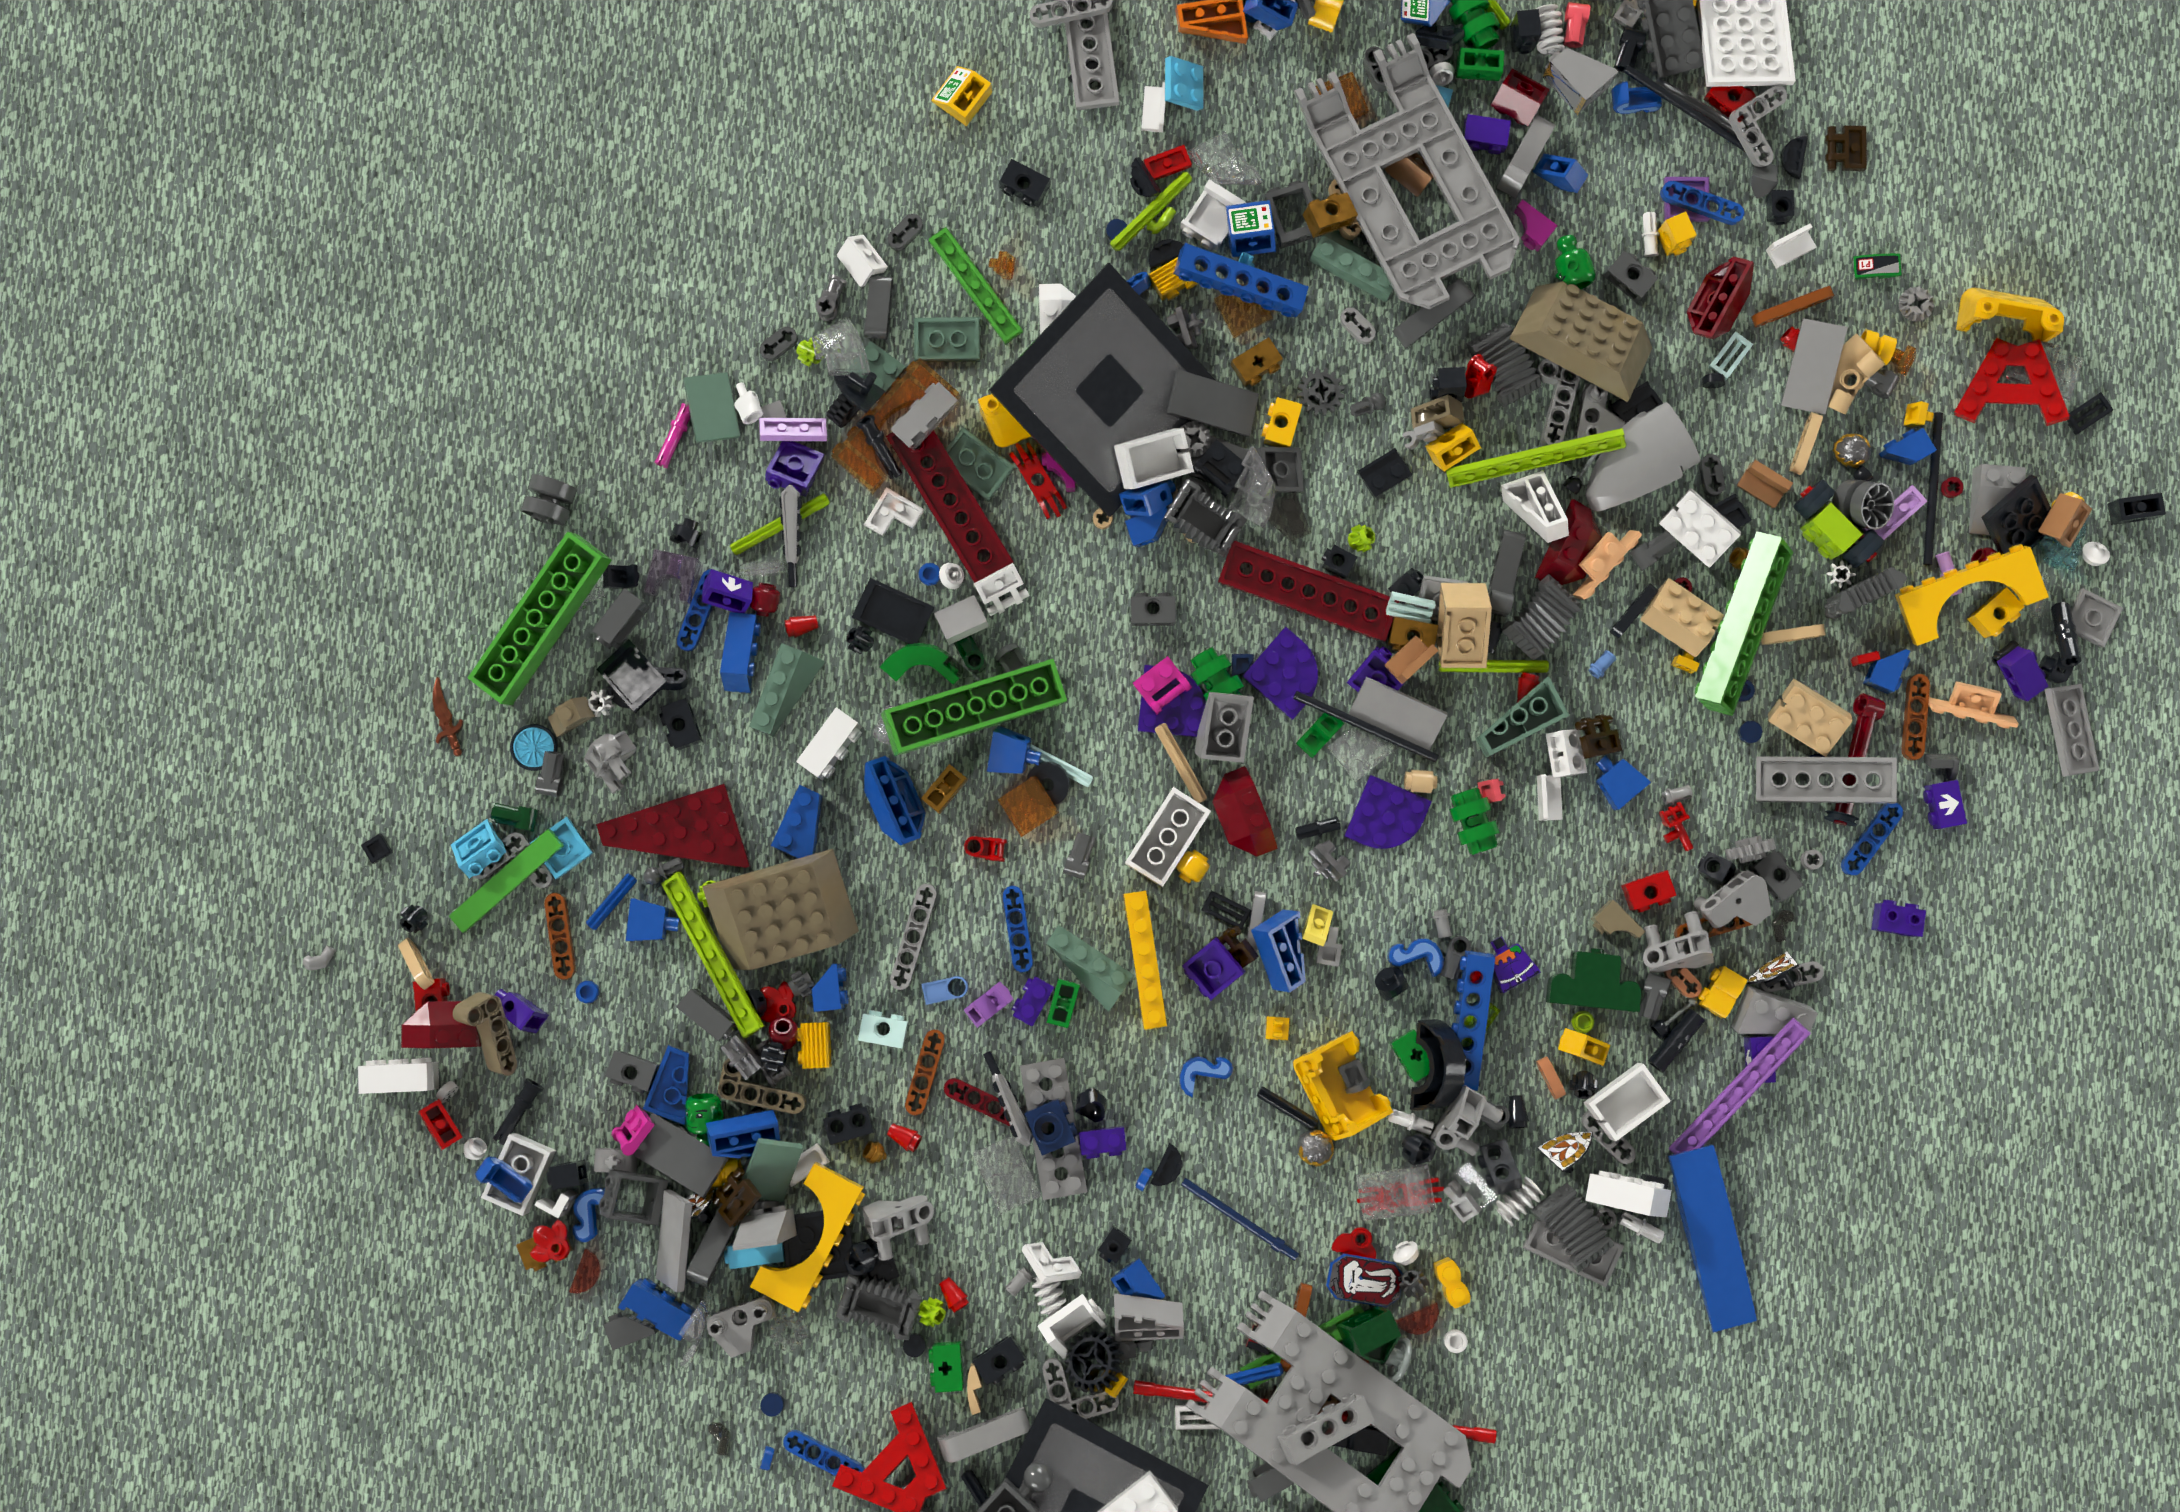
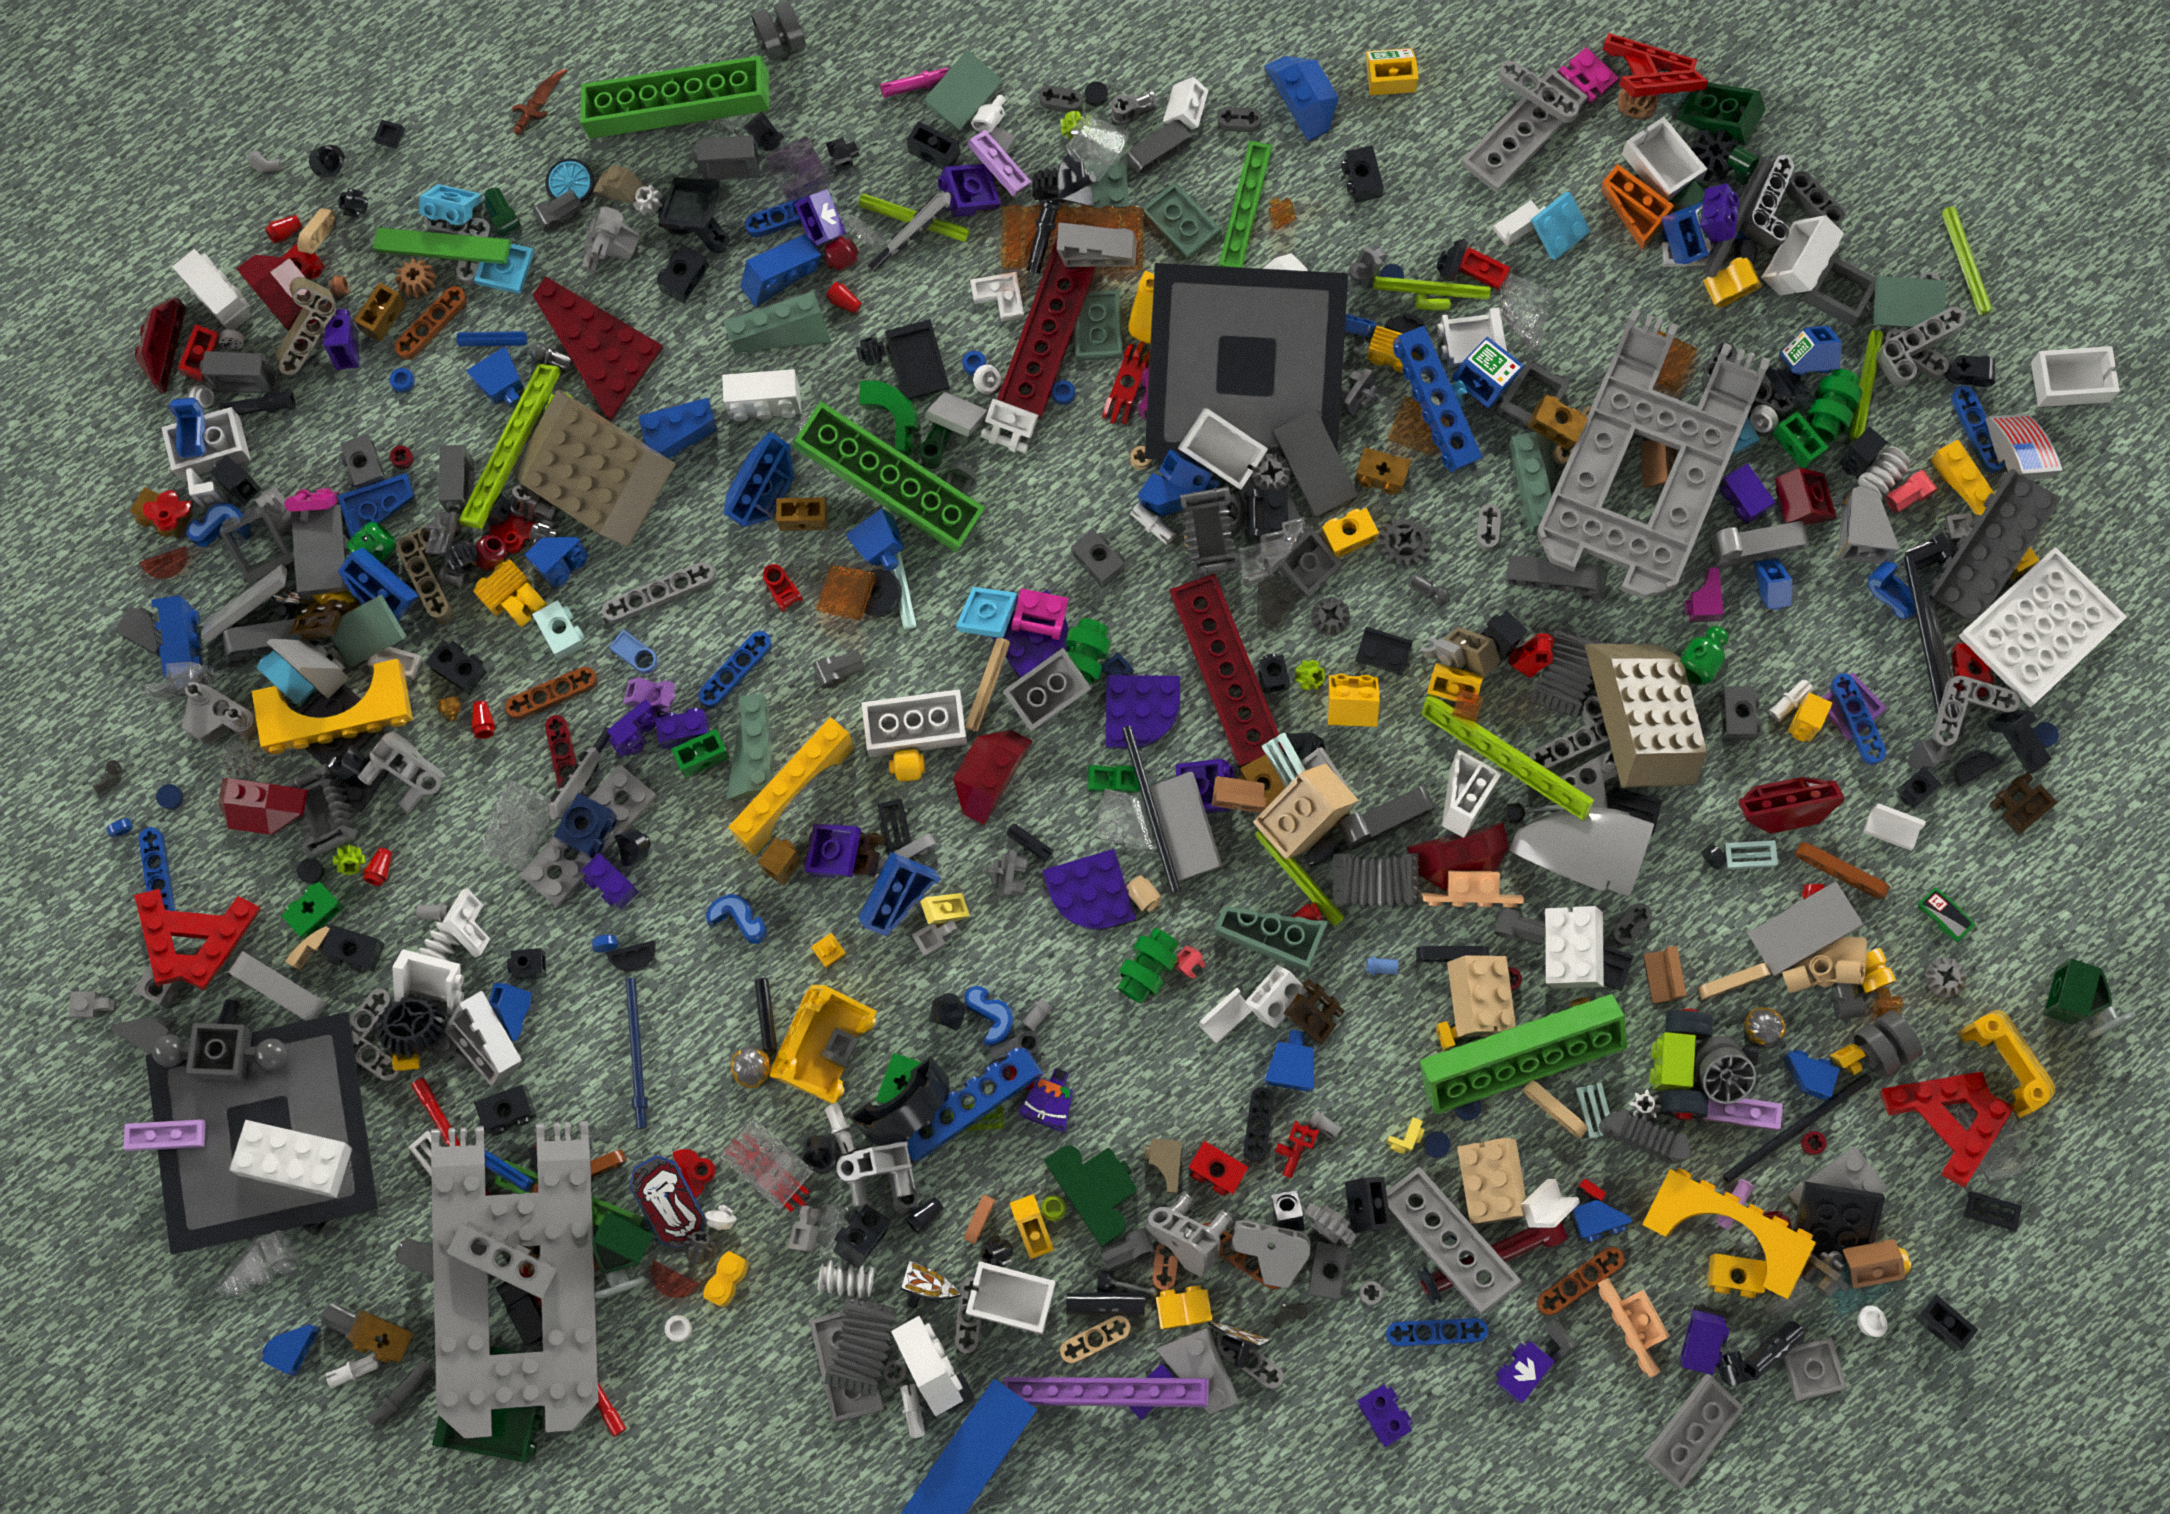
camera: 55 degrees right, 10 degrees down
(361, 912) = (326, 160): none -> black piece
(388, 986) = (283, 228): none -> red cone
(404, 1147) = (160, 341): none -> dark red wedge
(472, 980) = (339, 286): none -> nougat plate
(482, 1108) = (238, 372): none -> dark grey window
(522, 967) = (380, 312): none -> pearl gold brick
(523, 916) = (415, 278): none -> medium nougat gear
(653, 1033) = (402, 464): none -> dark red bush
(740, 465) = (933, 146): none -> black brick
(770, 975) = (531, 505): none -> flat silver connector
(795, 315) = (1096, 93): none -> black tile
(838, 1345) = (259, 805): none -> dark red wedge
(843, 1040) = (523, 605): none -> yellow wheel
(925, 169) = (1305, 92): none -> blue wedge
(1006, 530) = (1063, 392): none -> blue tile
(1008, 1043) = (627, 732): none -> dark purple plate
(1099, 241) = (1367, 265): none -> flat silver hips
(1128, 720) = (987, 612): none -> medium azure plate
(1159, 551) = (1153, 524): none -> white pin
(1190, 1010) = (780, 860): none -> pearl gold brick
(1207, 1327) = (490, 1110): none -> black brick
(1323, 496) = (1332, 626): none -> dark grey gear
(1404, 524) = (1353, 700): none -> yellow slope
(1479, 452) = (1467, 705): none -> clear orange tile
(1630, 838) = (1254, 1104): none -> black beam
(1699, 1074) = (1092, 1350): none -> tan beam
(1733, 744) = (1413, 1134): none -> light yellow bracket
(1756, 812) = (1368, 1205): none -> black brick
(1804, 108) = (2022, 738): none -> black bracket
(1810, 617) = (1580, 1094): none -> light aqua tile
(1812, 91) = (2047, 734): none -> dark blue tile
(1856, 696) = (1547, 1206): none -> white panel
(1933, 382) = (1888, 1044): none -> dark grey wheel
(2007, 229) = (2080, 992): none -> dark green piece
(2054, 557) = (1831, 1278): none -> flat silver hips

